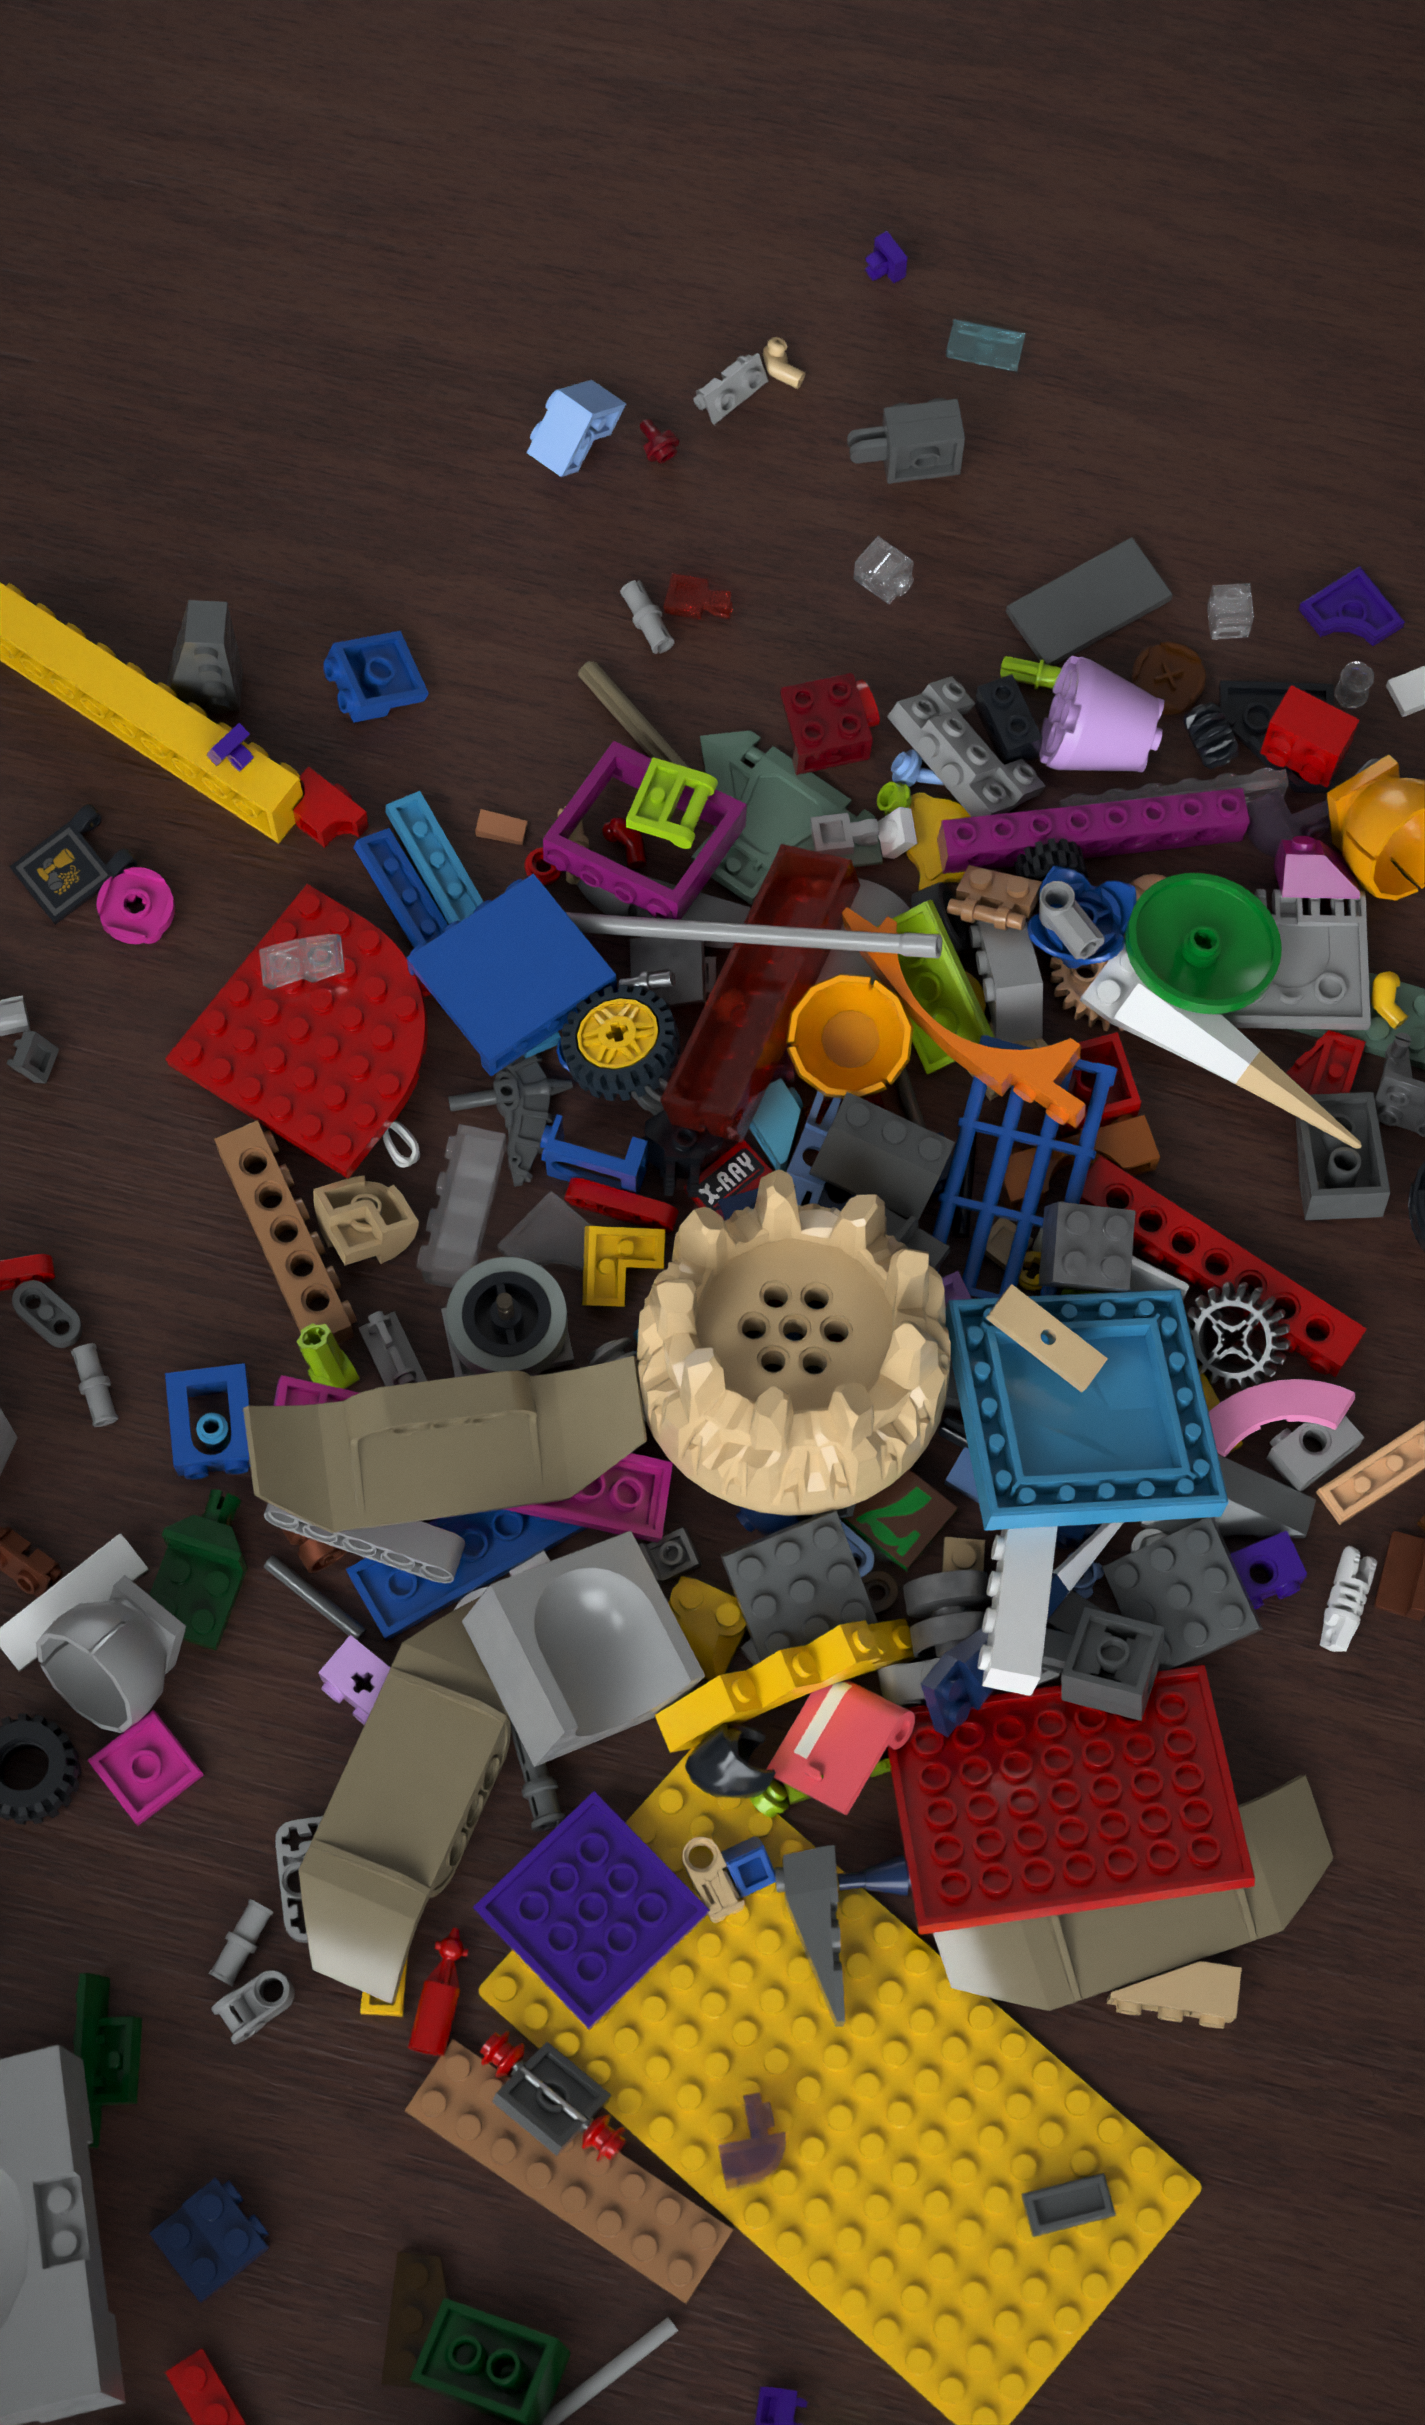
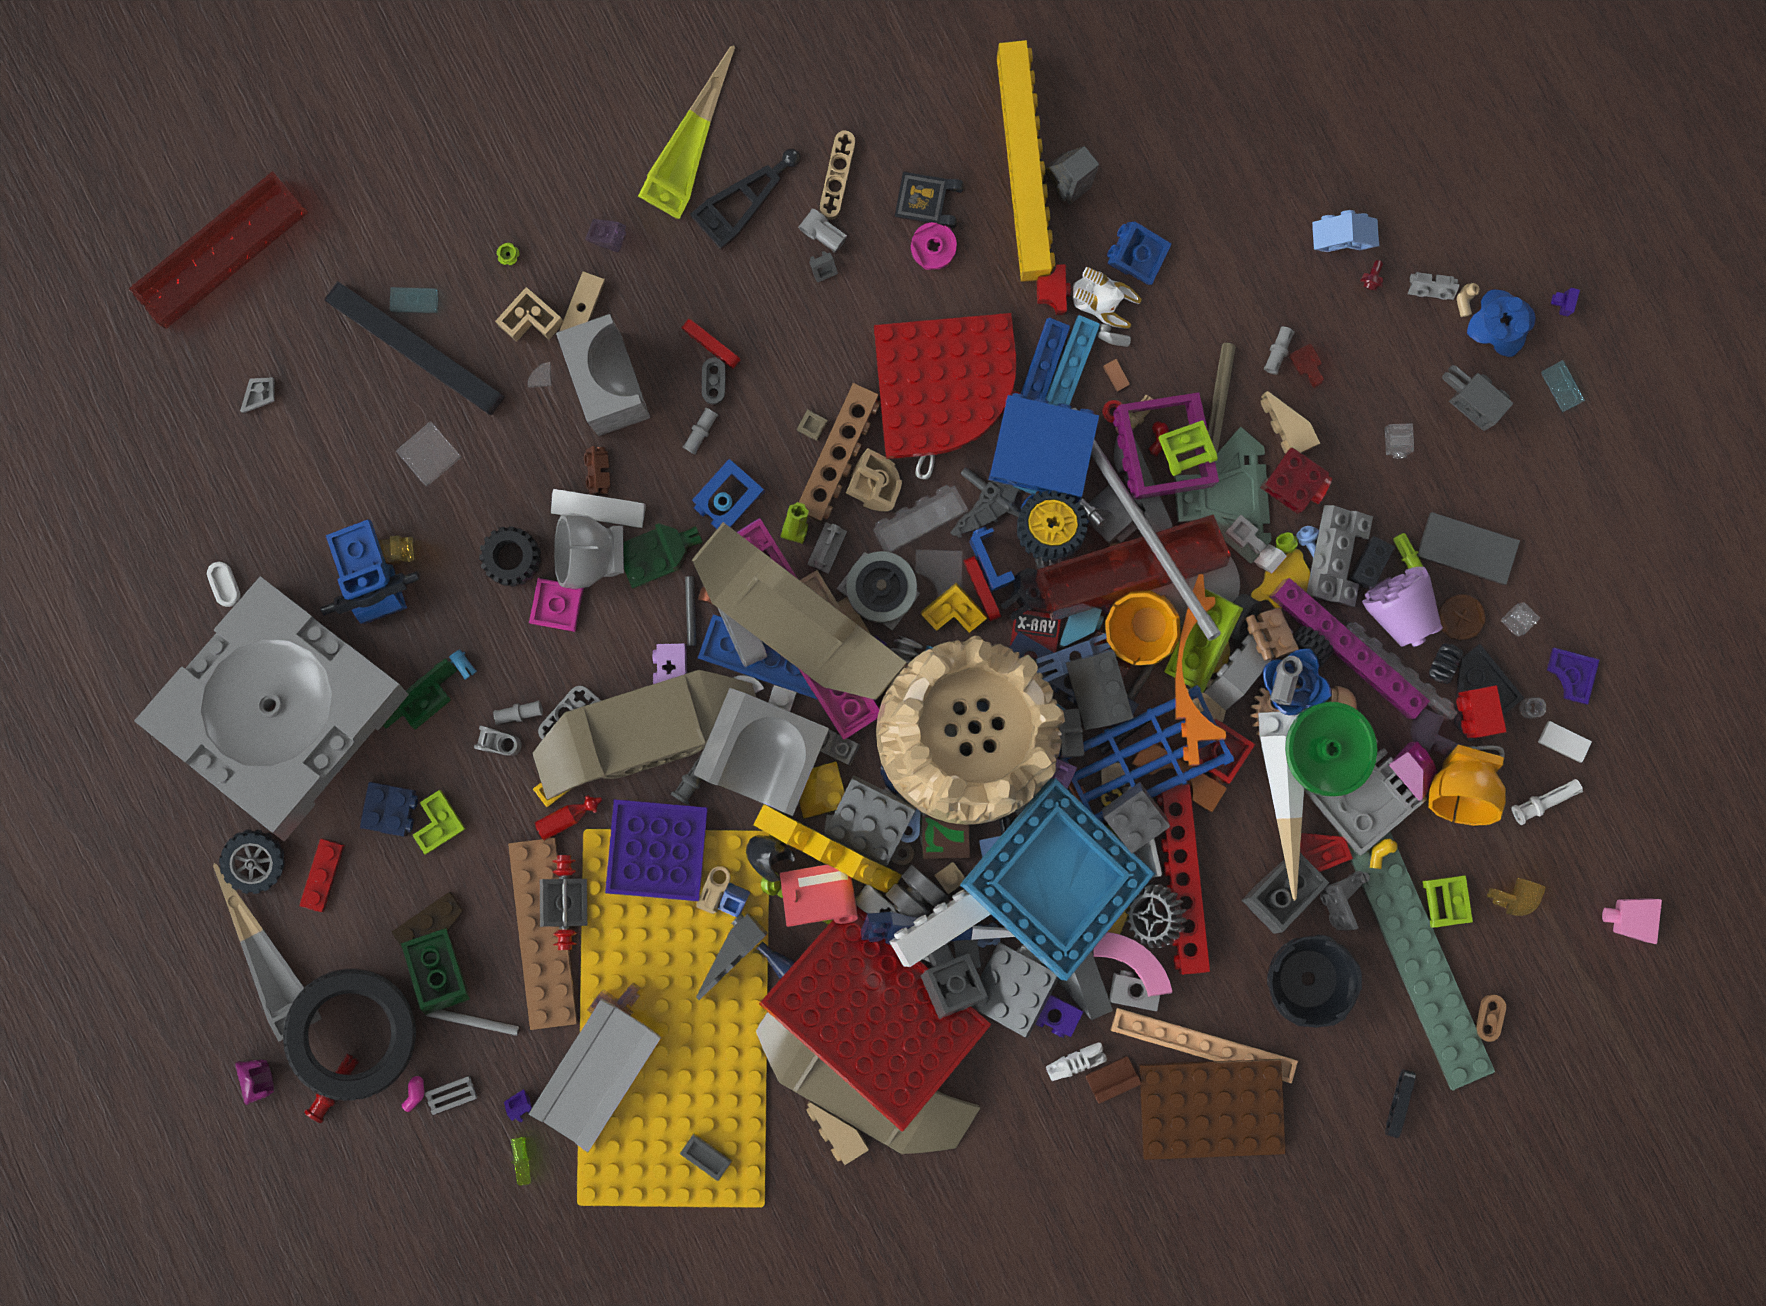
camera: 50 degrees right, 15 degrees up
(108, 1961) = (461, 662): none -> dark azure pin
(219, 1241) = (812, 425): none -> dark tan tile
(231, 748) = (1036, 226): dark purple tile -> none
(301, 2178) = (444, 823): none -> lime plate
(305, 958) = (968, 347): clear slope -> none
(389, 760) = (1101, 297): none -> white piece
(451, 792) = (1112, 338): none -> light grey arm
(748, 676) = (1291, 426): none -> tan slope
(827, 2255) = (595, 1074): none -> light grey hinge
(837, 365) = (1486, 324): none -> blue brick
(1066, 1352) = (1074, 851): tan tile -> none

